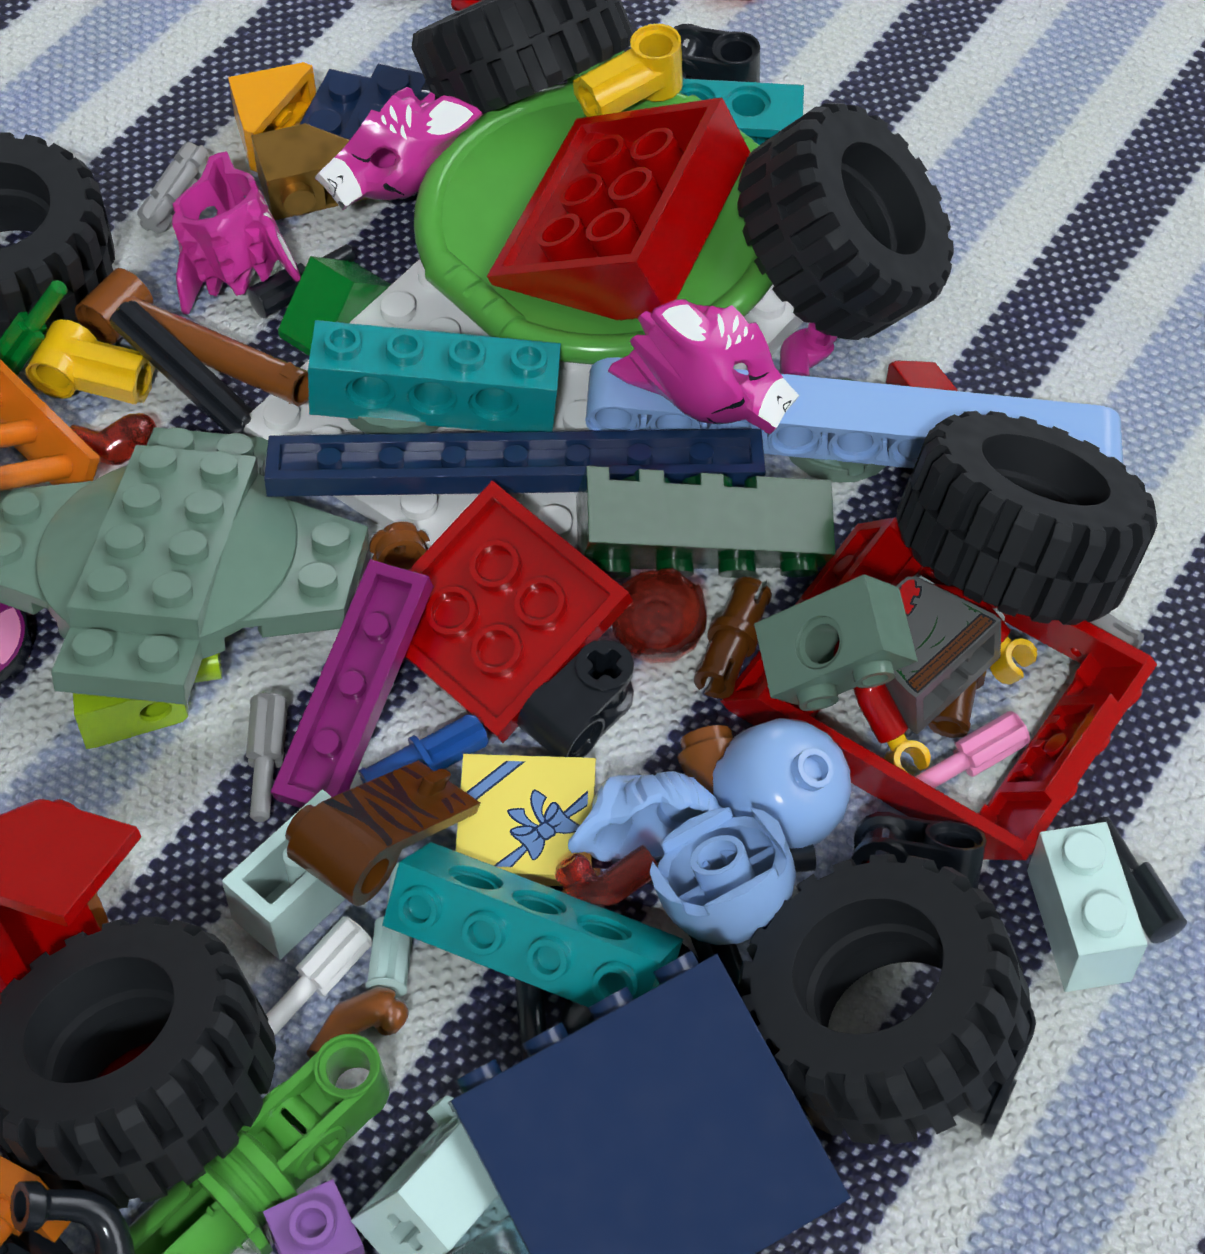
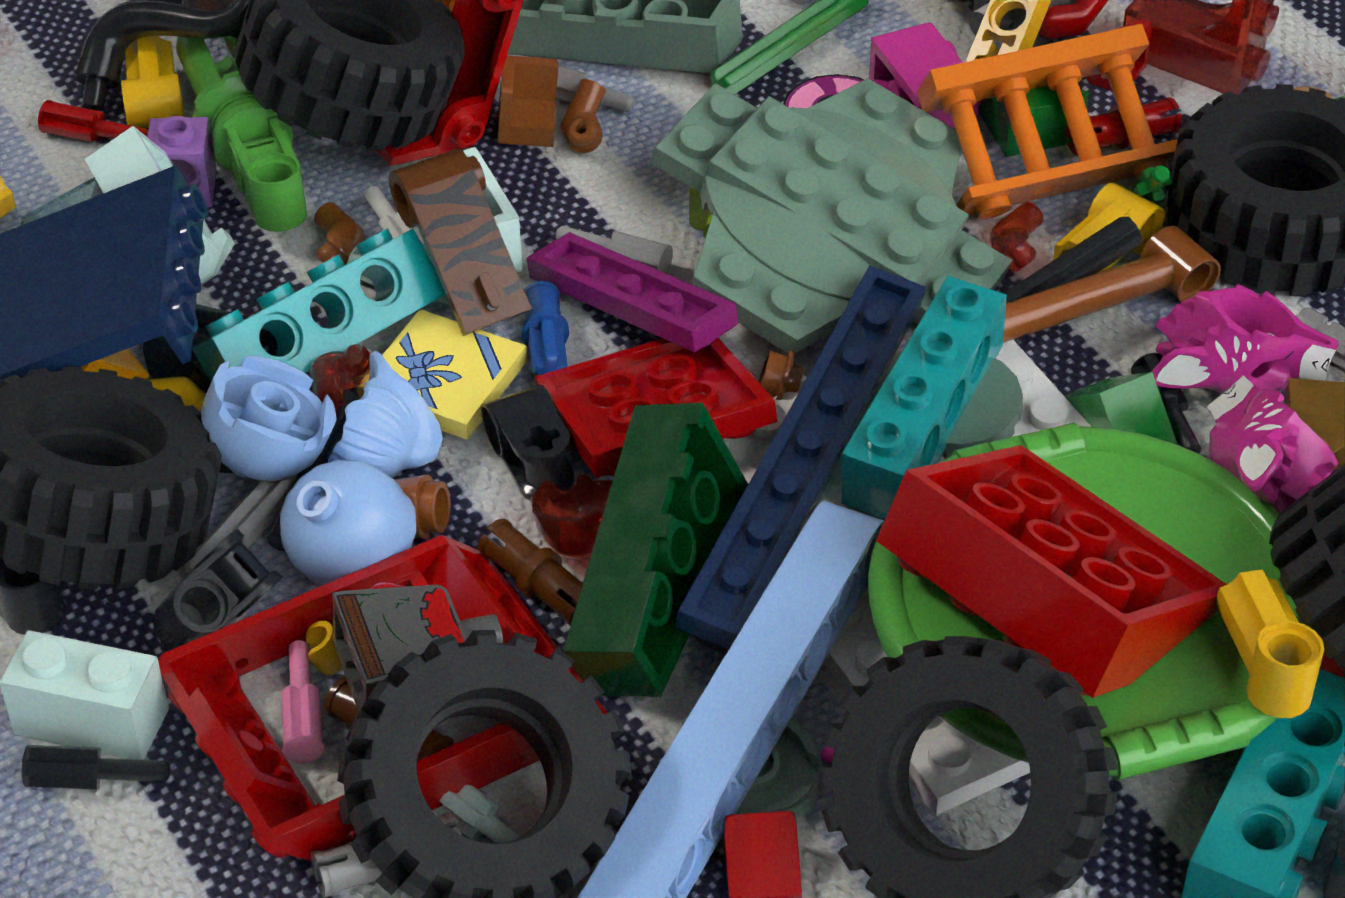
camera: 115 degrees right, 10 degrees down
(691, 362) = (801, 537): dark pink piece -> none
(802, 639) = (420, 549): sand green brick -> none

